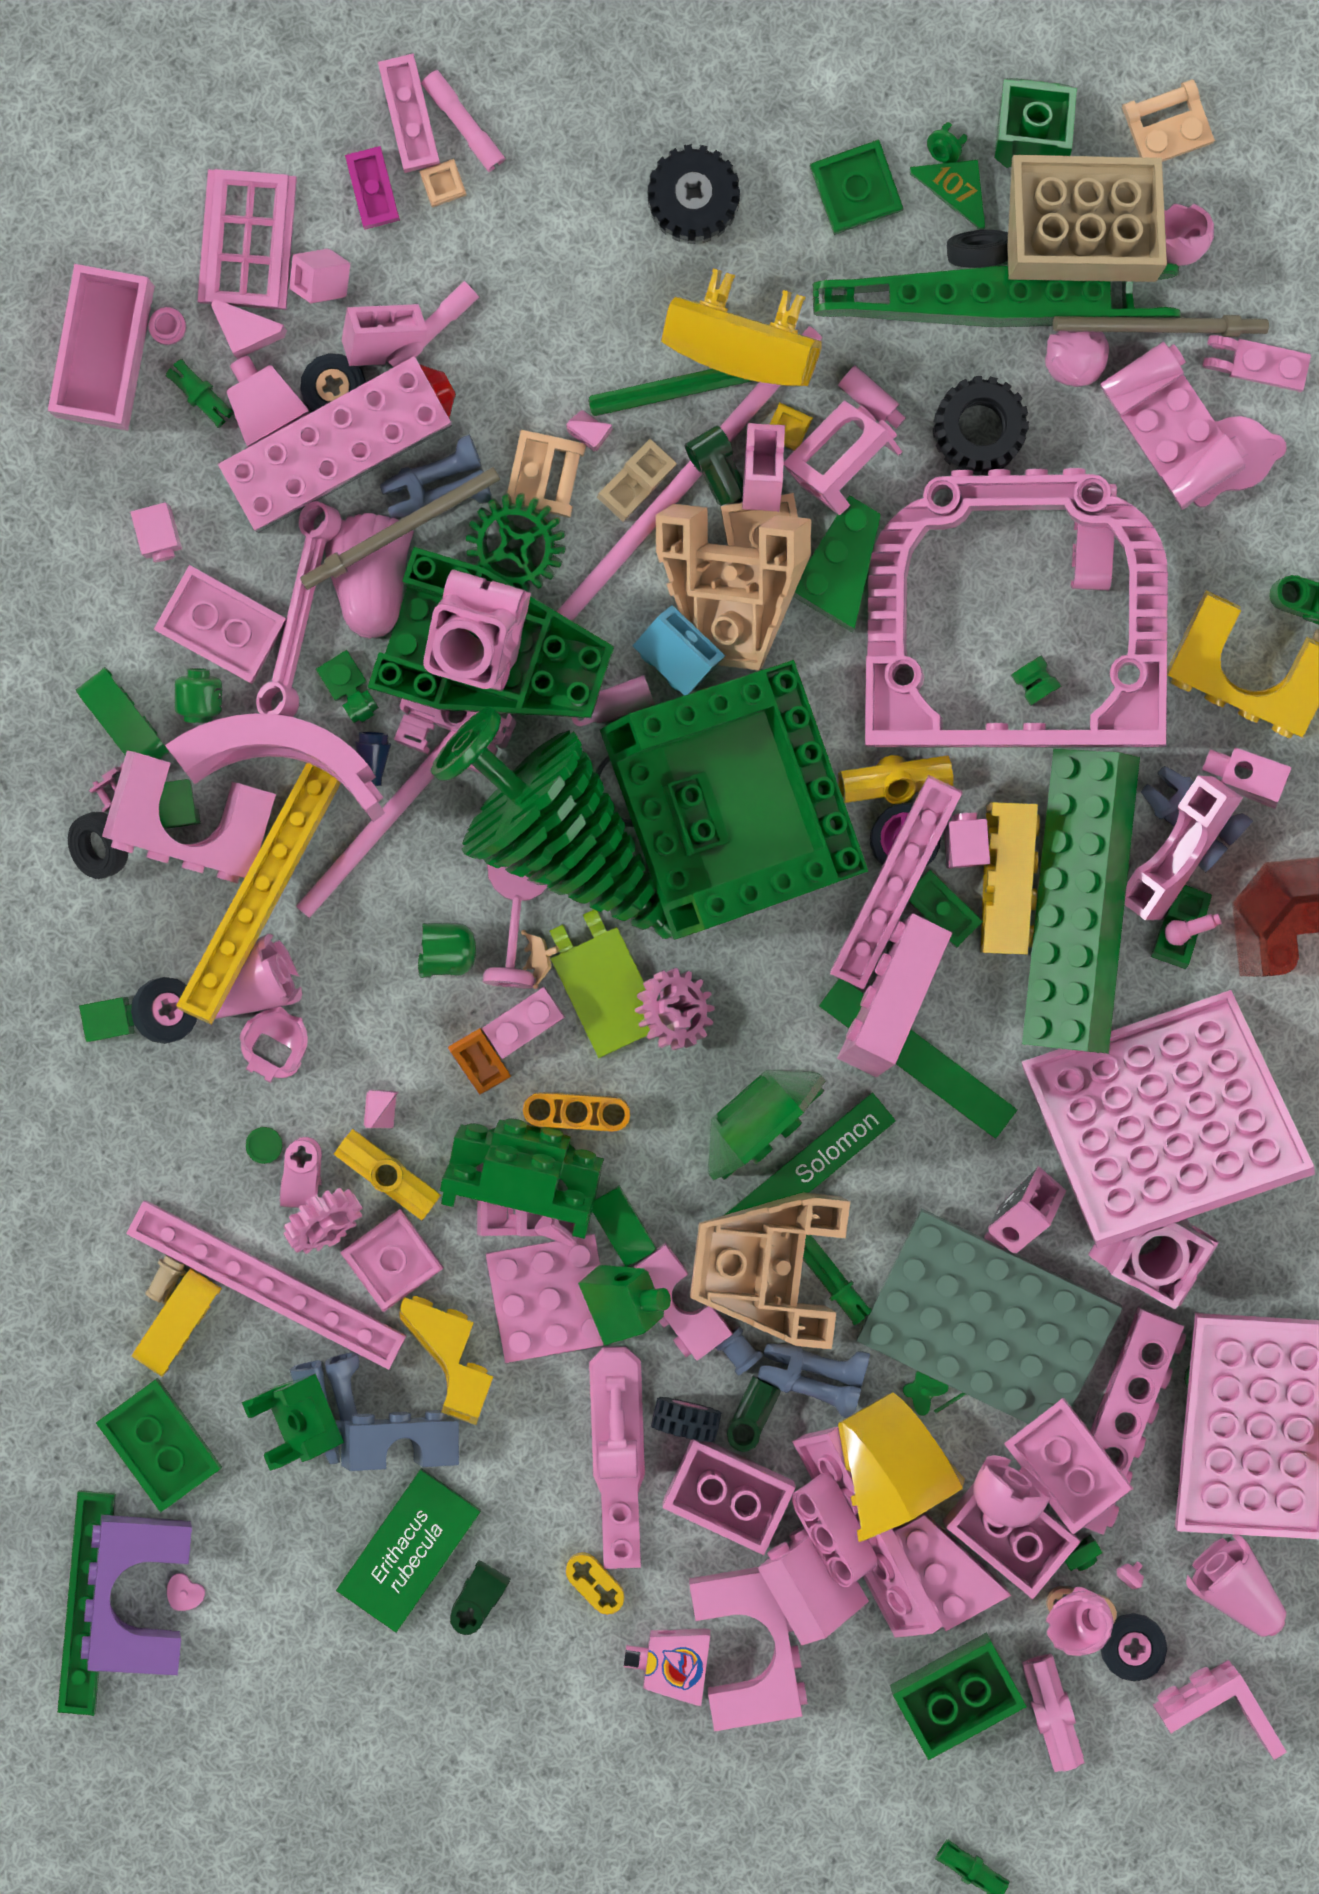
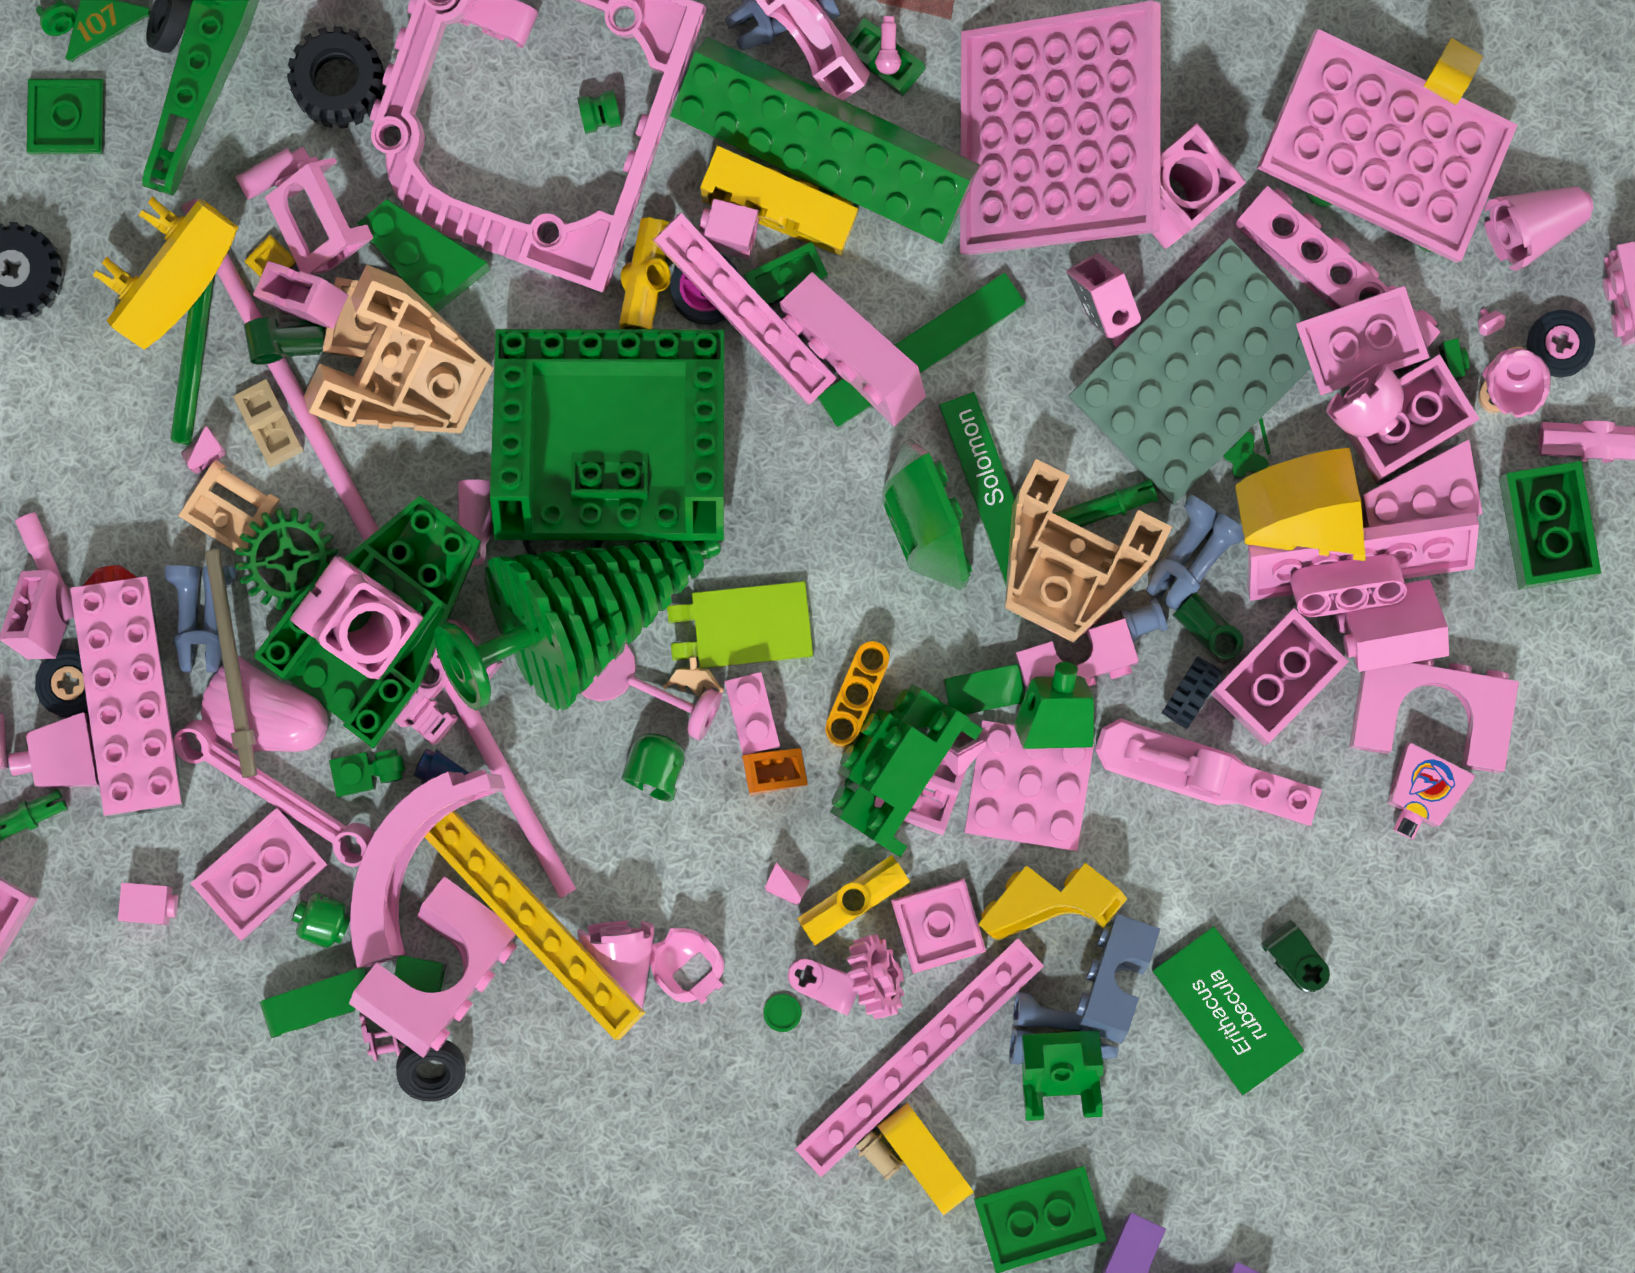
camera: 70 degrees left, 5 degrees down
(107, 1019) = (604, 1119): green brick -> none
(146, 1015) = (615, 1079): black bush -> none
(183, 1593) = (1194, 1248): bright pink piece -> none
(601, 1577) = (1318, 831): yellow beam -> none
(678, 651) = (447, 439): medium azure brick -> none
(680, 995) = (794, 564): bright pink gear -> none

